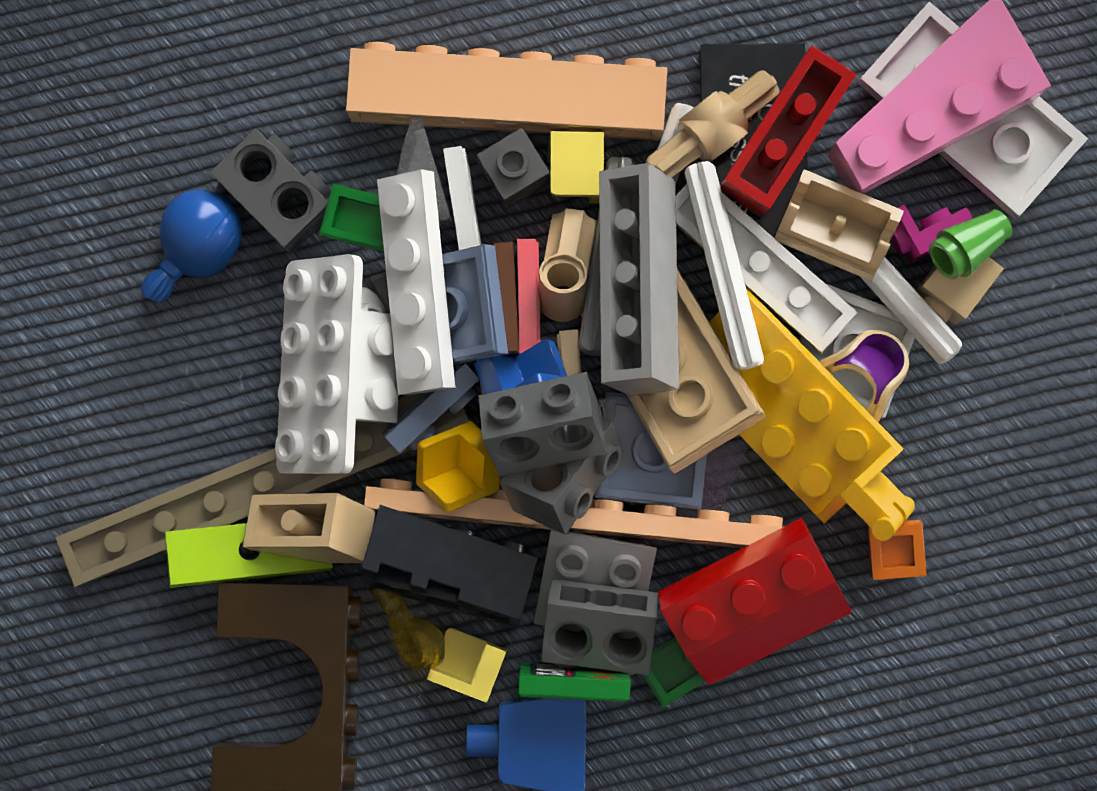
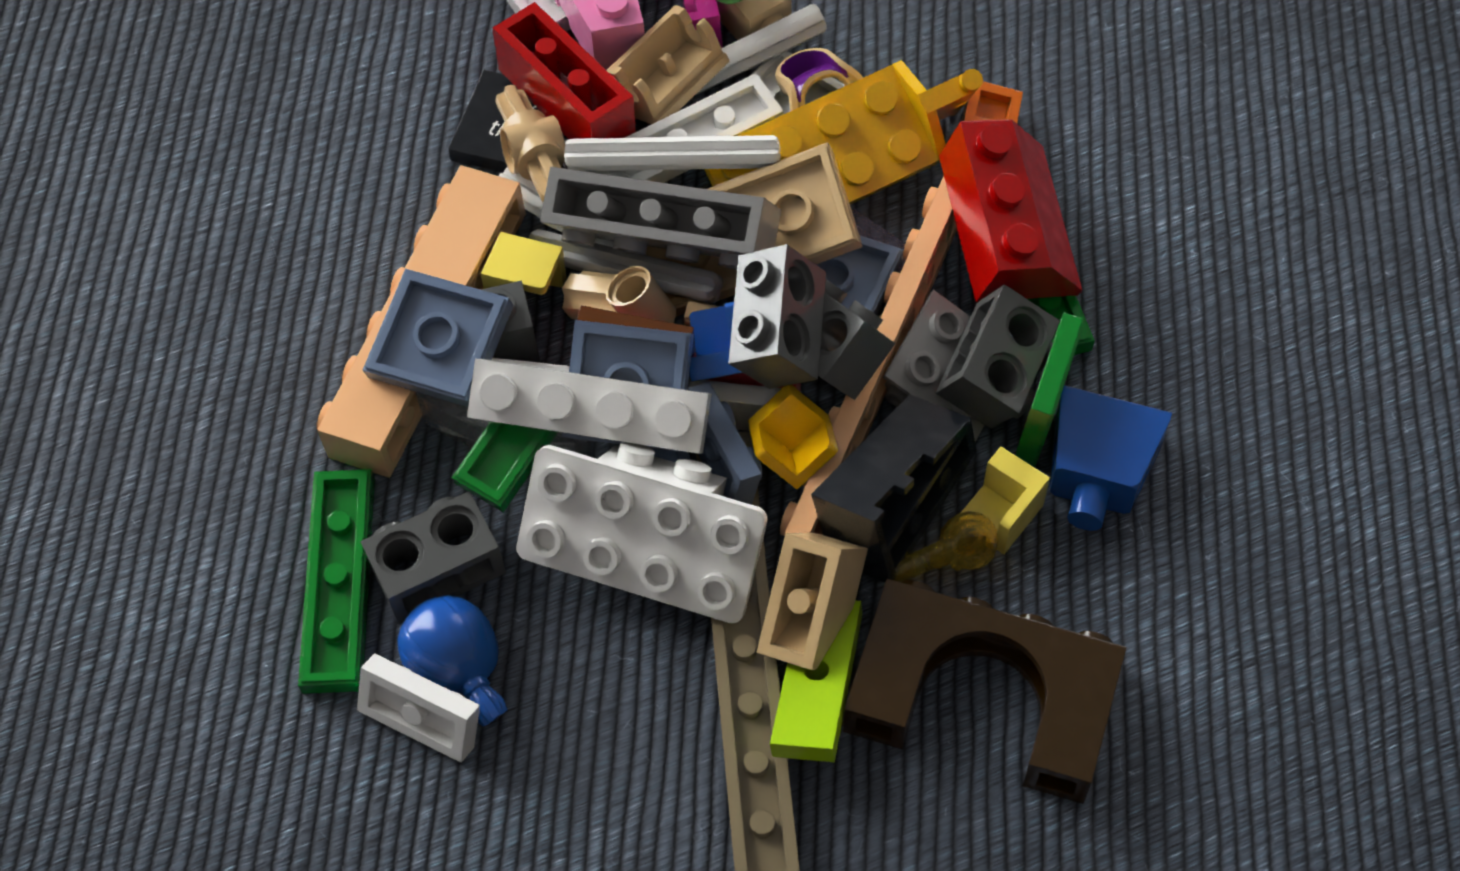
camera: 70 degrees left, 25 degrees down
(141, 209) = (418, 707): none -> white plate
(231, 116) = (336, 582): none -> green tile
(461, 121) = (436, 335): none -> sand blue tile

